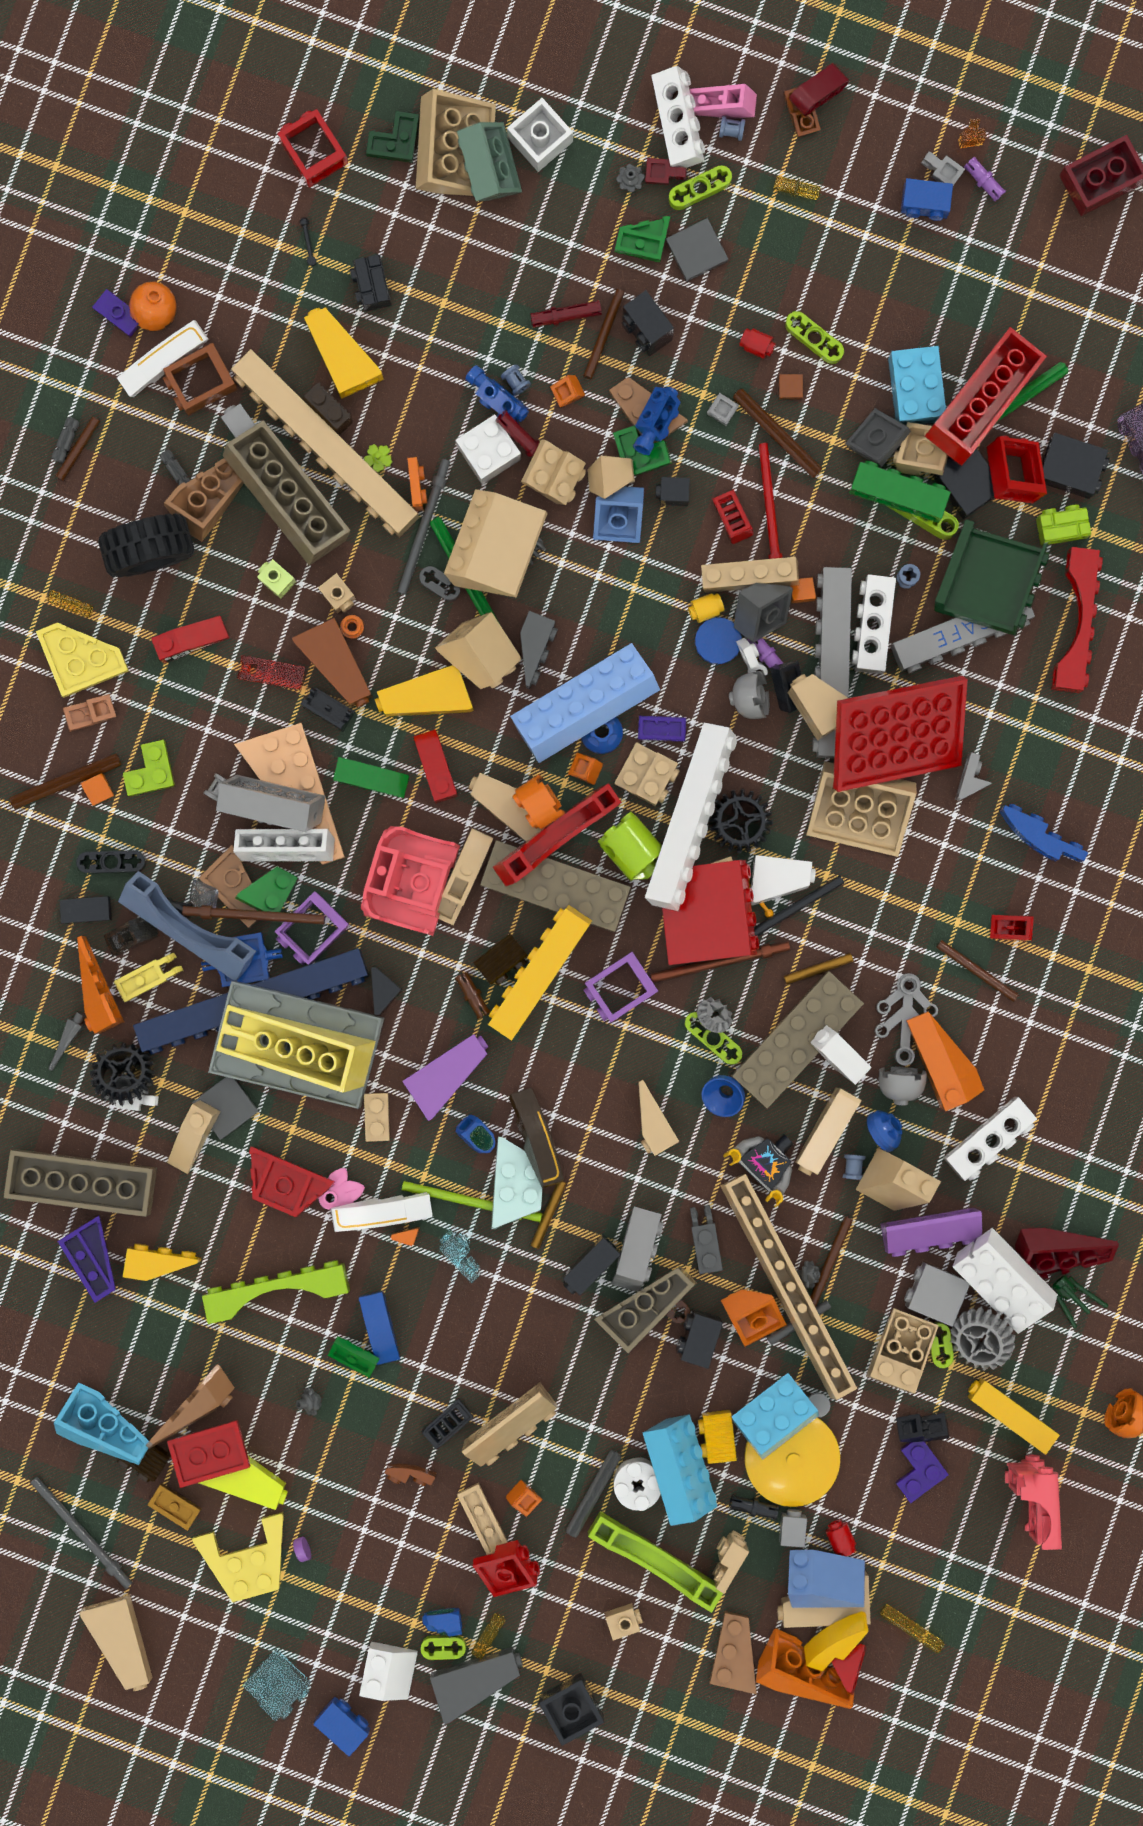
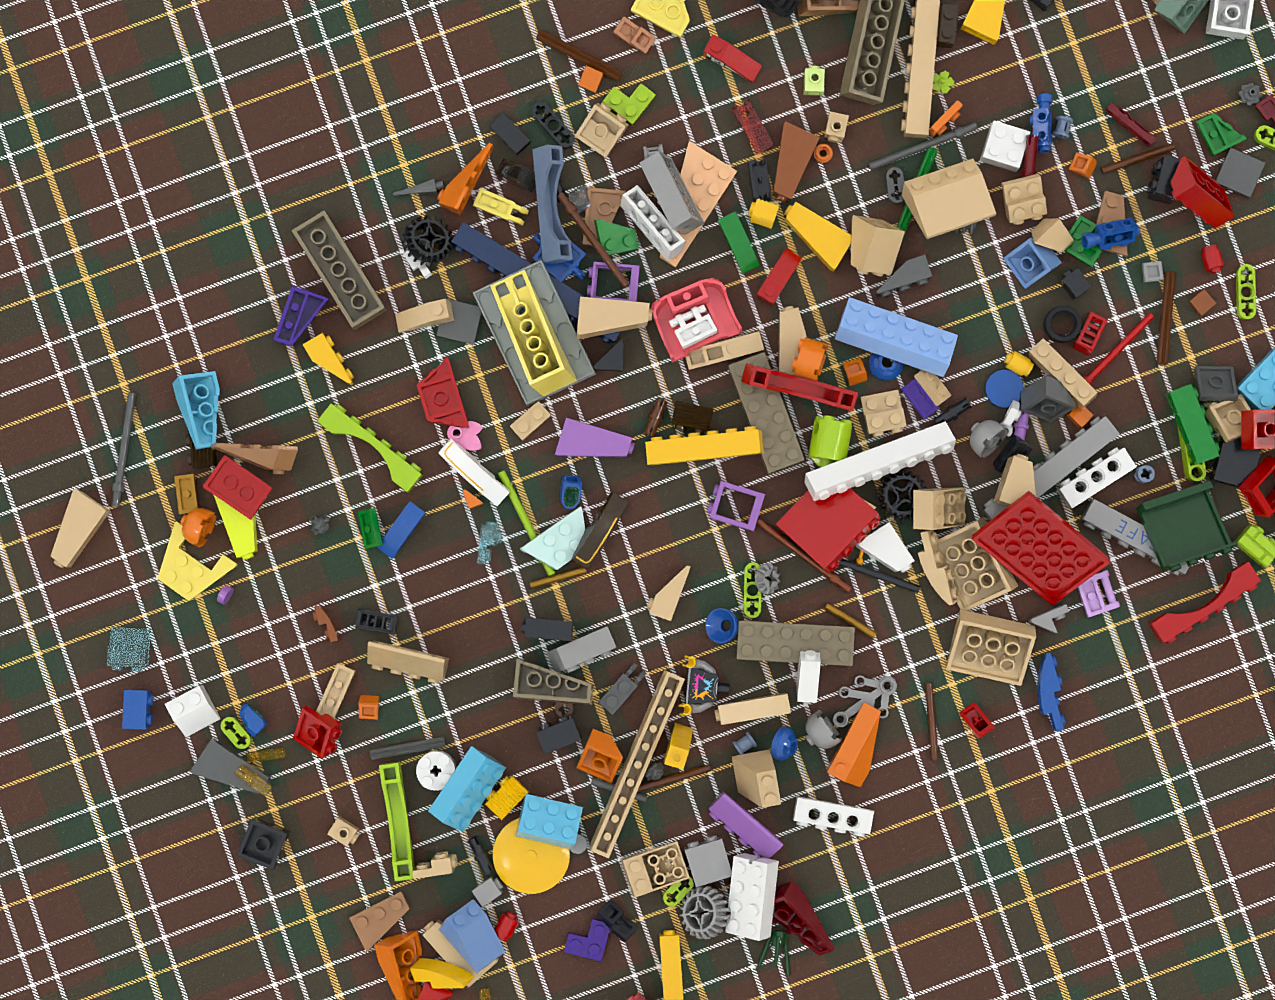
camera: 50 degrees right, 0 degrees up
(154, 818) = (602, 129): none -> tan plate
(213, 1522) = (197, 525): none -> orange cylinder
(340, 959) = (609, 316): none -> tan slope
(362, 731) = (763, 213): none -> yellow brick
(421, 890) = (695, 331): none -> white plate
(503, 1670) = (253, 780): none -> clear yellow axle
(661, 707) = (933, 386): none -> tan plate
(687, 302) = (1201, 193): none -> red slope
(700, 707) = (953, 412): none -> black pin
(702, 517) = (1076, 320): none -> black tyre
(781, 797) = (939, 508): none -> tan slope
(805, 1233) = (678, 746): none -> yellow slope
(845, 849) = (939, 575): none -> tan slope
(953, 856) = (991, 647): none -> tan slope
(983, 721) = (1091, 595): none -> lavender plate

